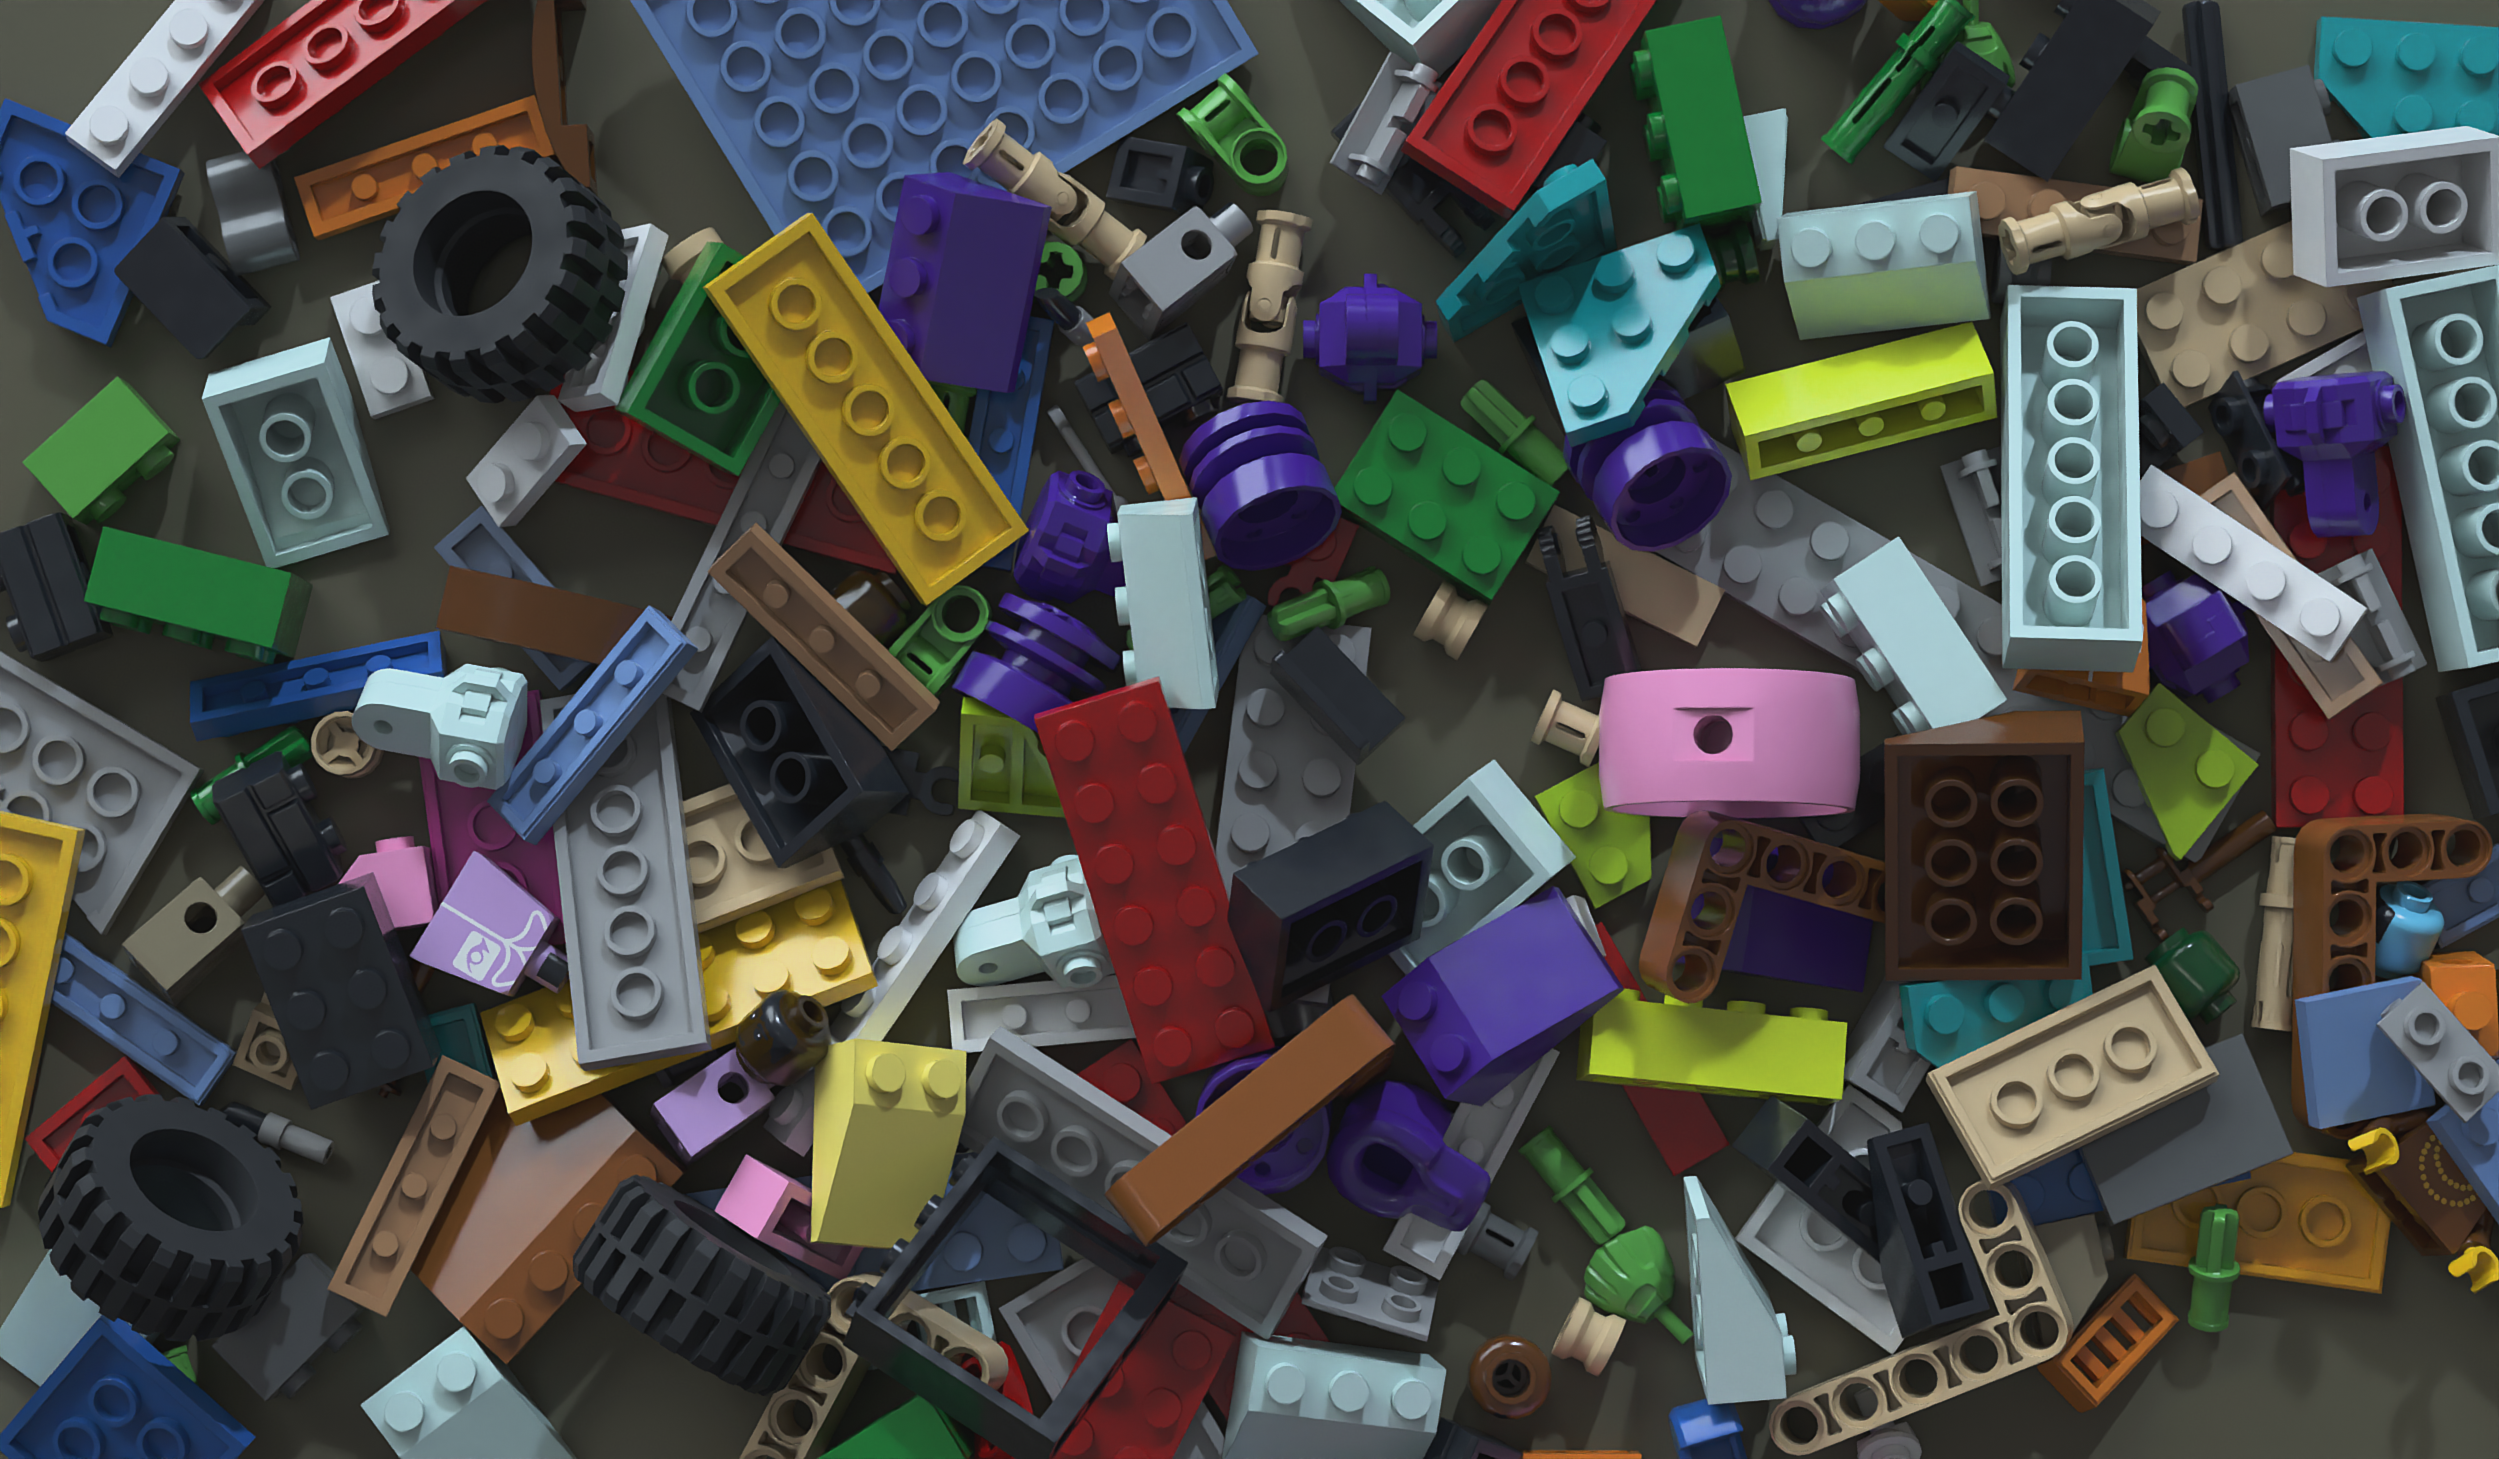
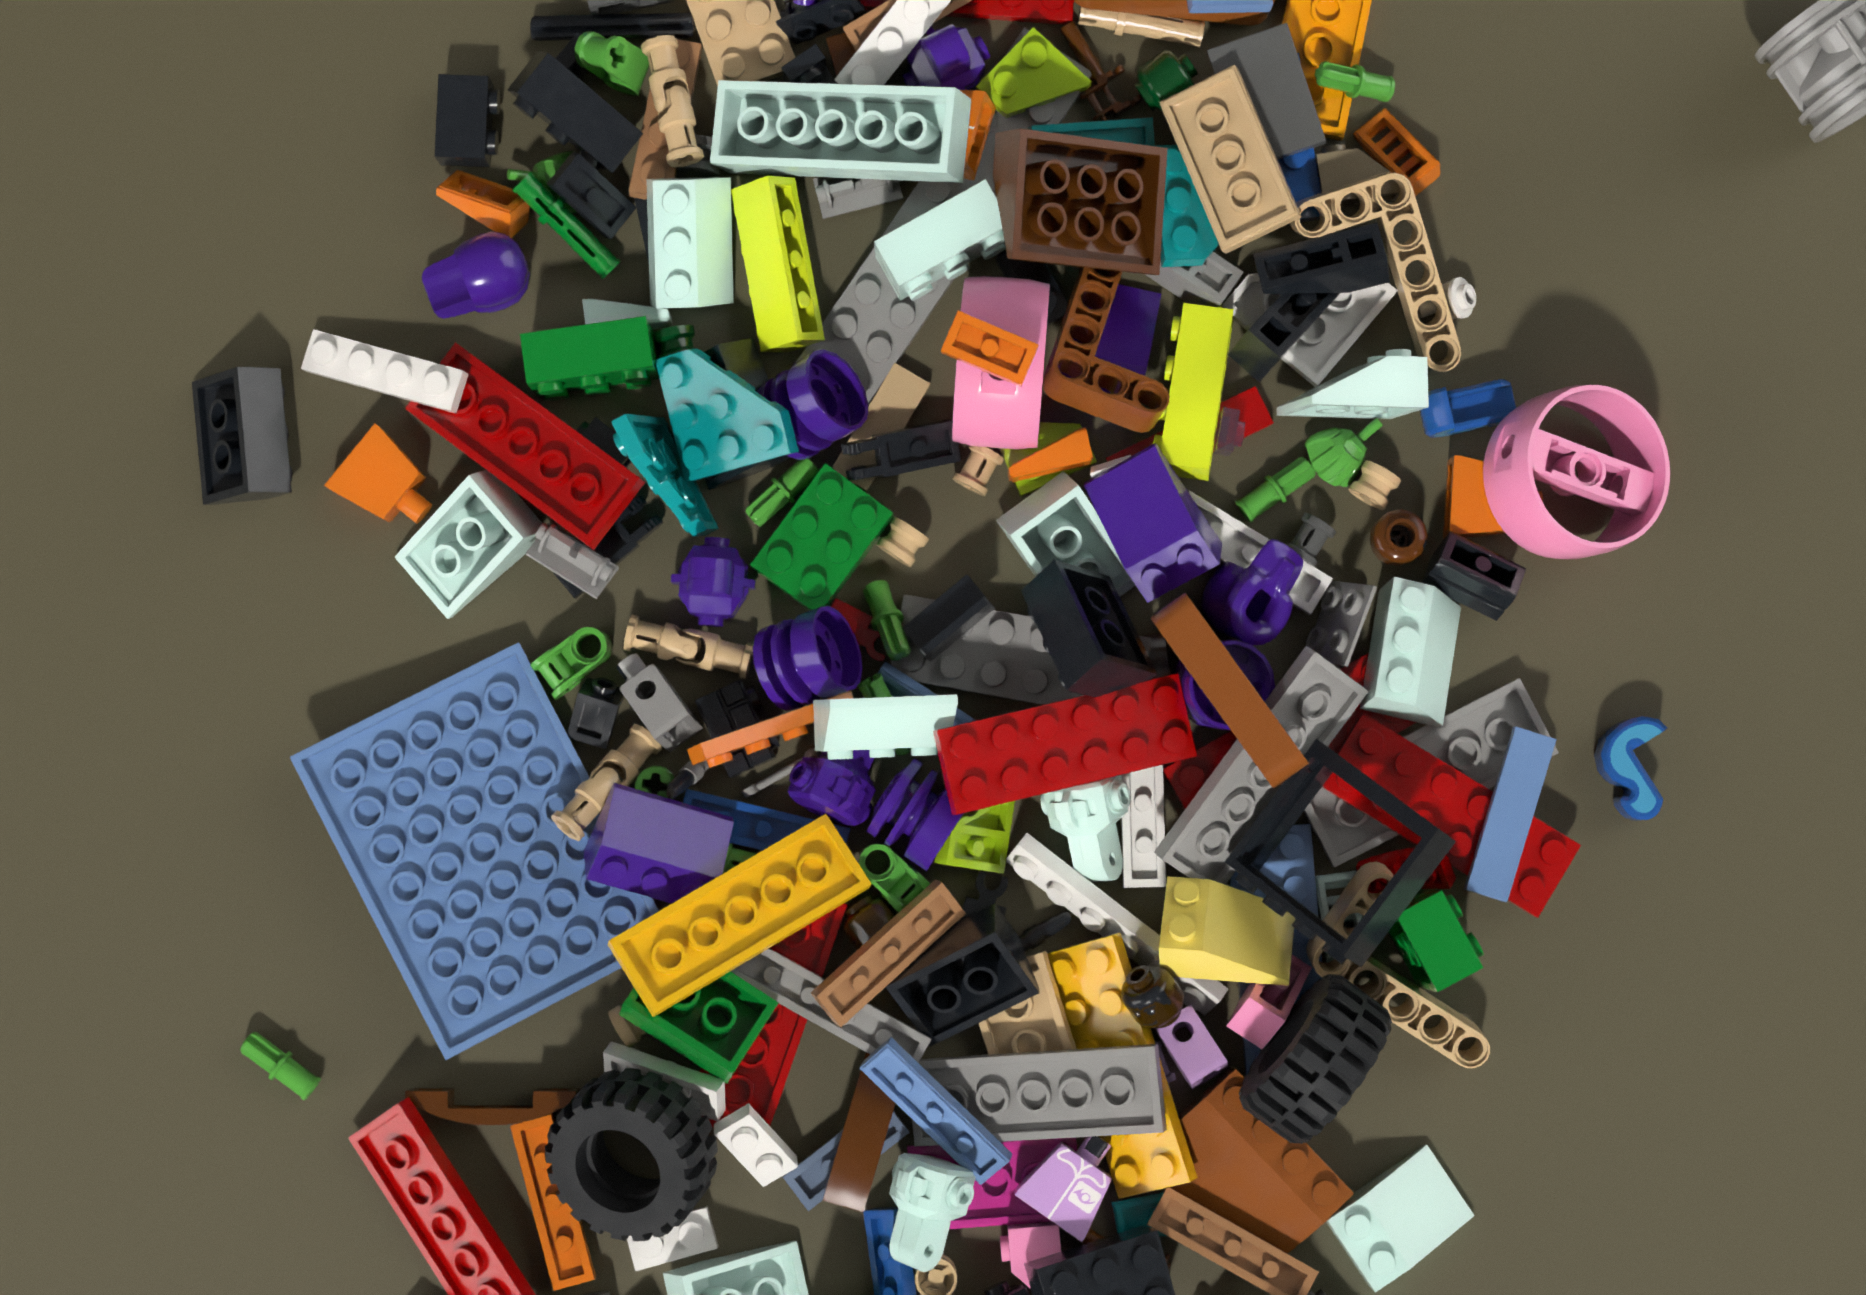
camera: 85 degrees left, 0 degrees up
(1599, 853) = (1062, 455): none -> orange slope
(1652, 1106) = (1229, 432): none -> plate
(1738, 714) = (989, 348): none -> orange plate

